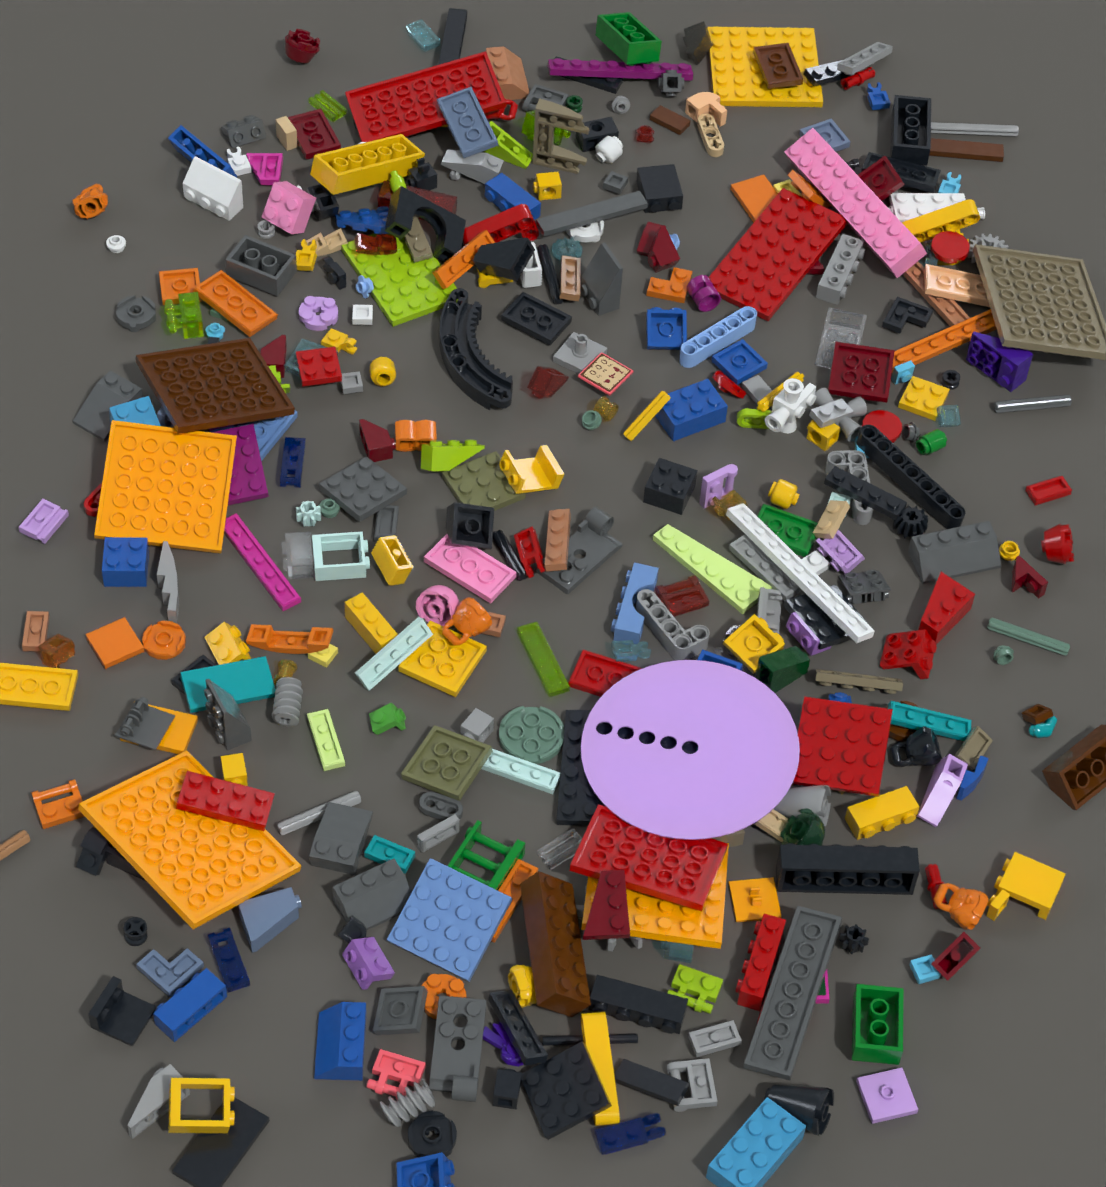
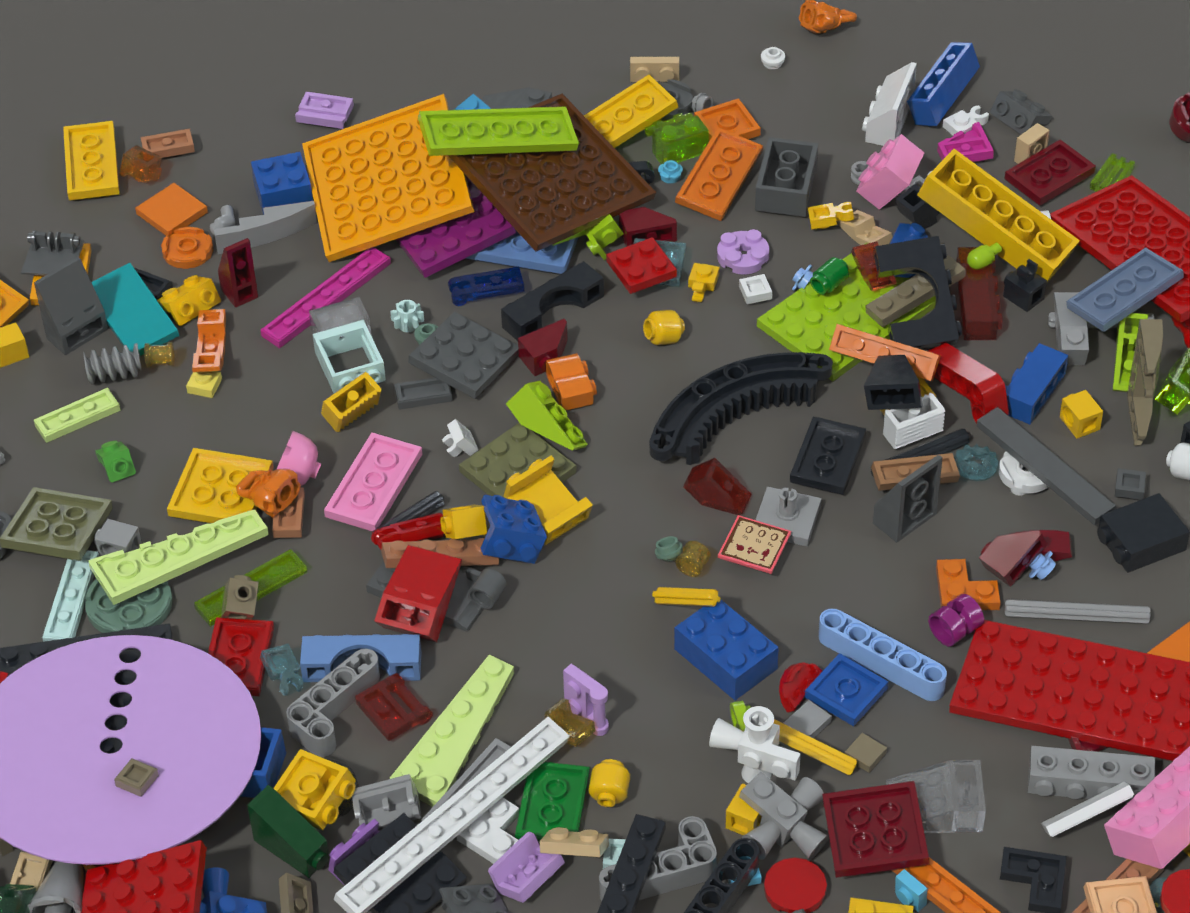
camera: 80 degrees right, 5 degrees down
(98, 312) = (658, 67): none -> tan plate
(145, 607) = (225, 220): none -> light grey arm
(146, 329) = (632, 110): none -> yellow plate
(152, 294) = (701, 102): none -> light grey plate
(179, 394) = (497, 131): none -> lime plate
(228, 601) = (237, 273): none -> dark red slope
(335, 272) = (811, 248): black plate -> none
(337, 444) = (576, 287): none -> black arch
(351, 382) = (635, 305): light grey plate -> none
(369, 622) = (247, 409): yellow brick -> none
(378, 267) = (829, 275): none -> green brick
(393, 653) = (204, 434): light aqua plate -> none
(442, 507) = (459, 439): none -> white tile
(470, 525) = (428, 460): black slope -> none
(511, 705) = (138, 570): none -> yellowish green wing
(539, 516) = (464, 521): none -> yellow brick
(554, 486) = (513, 529): none -> blue bracket
(564, 659) = (239, 598): none -> dark tan brick
(600, 554) = (419, 593): none -> red slope
(666, 328) = (869, 591): blue plate -> none
(670, 486) = (576, 642): black brick -> none
(709, 239) = (1077, 611): none -> light grey axle
(728, 732) = (136, 777): none -> dark tan tile
(788, 367) = (866, 752): none -> dark tan tile
(870, 274) = (1088, 809): none -> white tile

